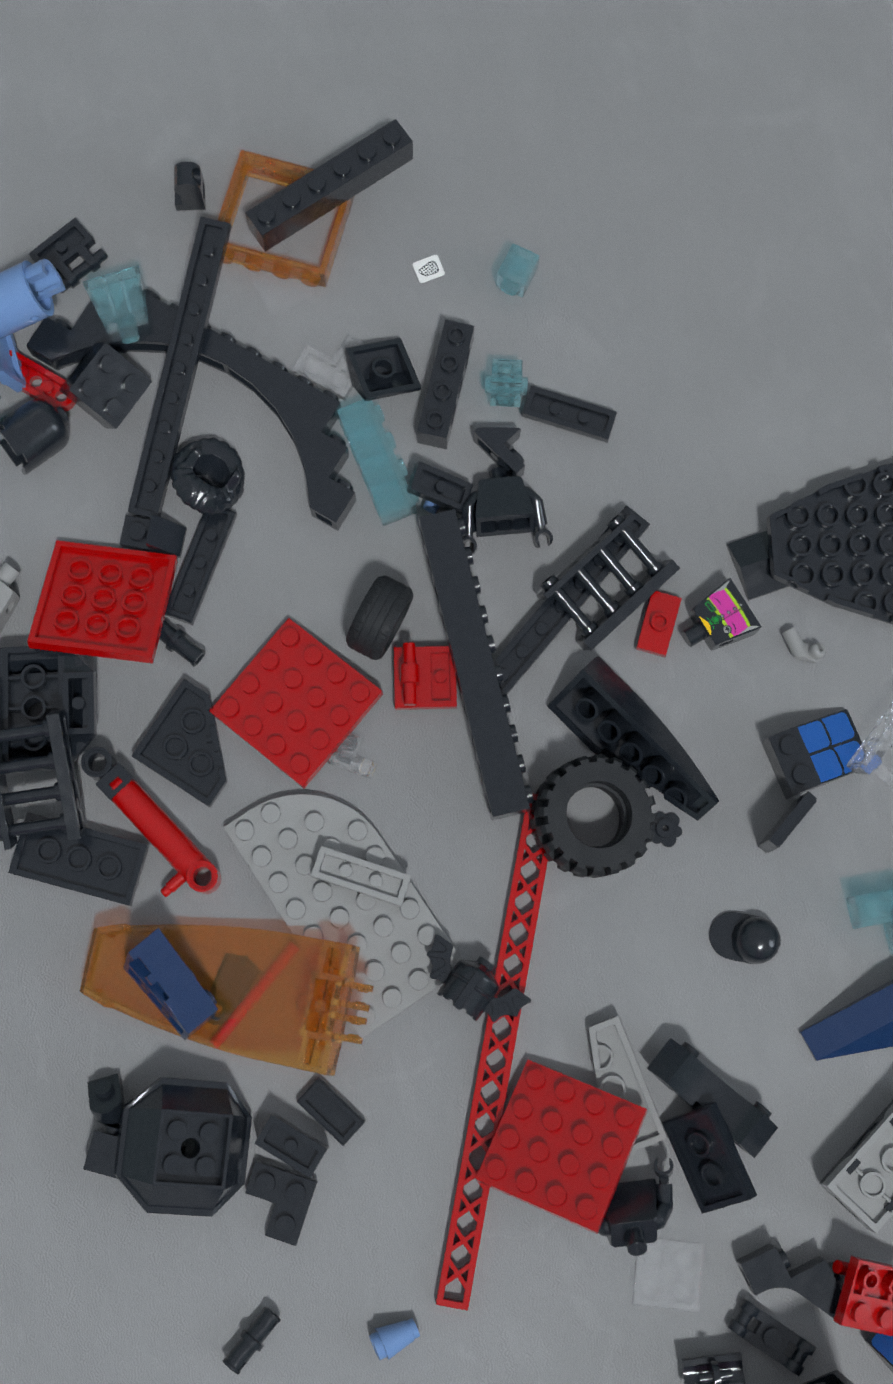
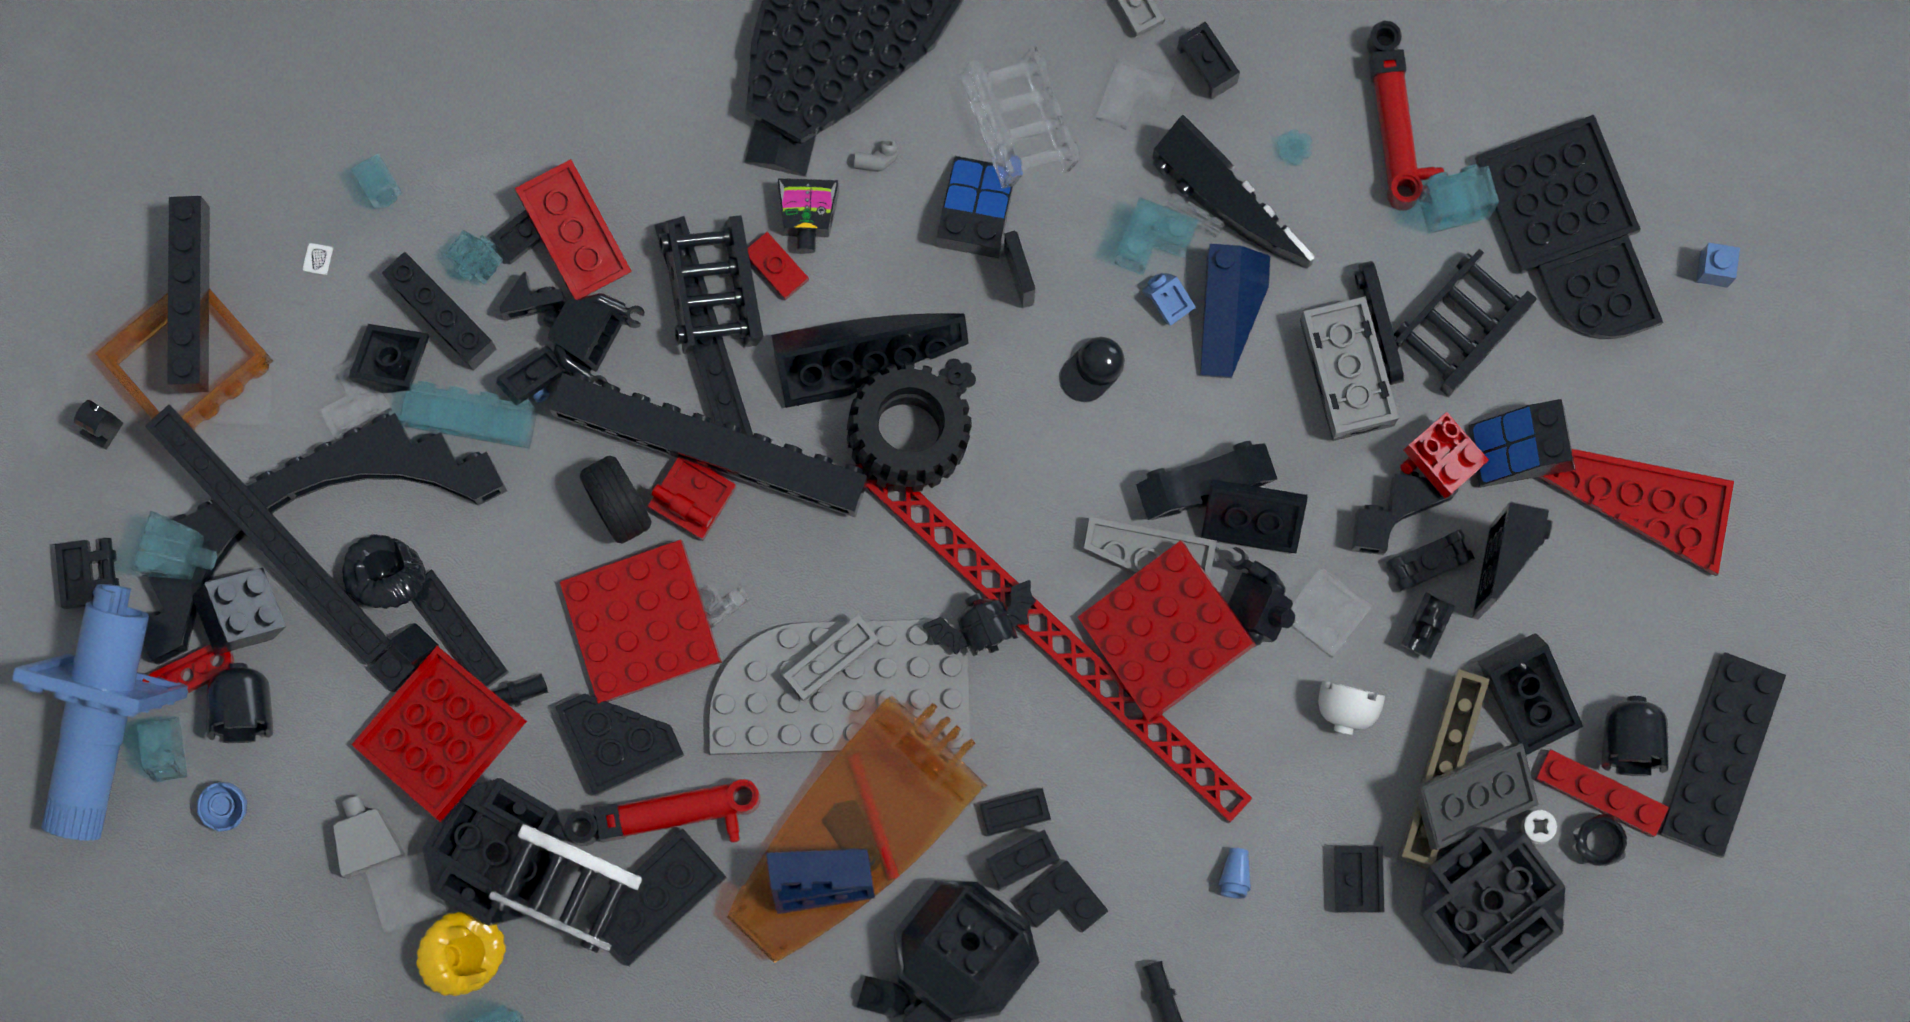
camera: 55 degrees left, 0 degrees up
(579, 444) = (573, 230): none -> red plate
(598, 1348) = (1349, 707): none -> white cylinder
(848, 963) = (1169, 297): none -> medium blue bracket

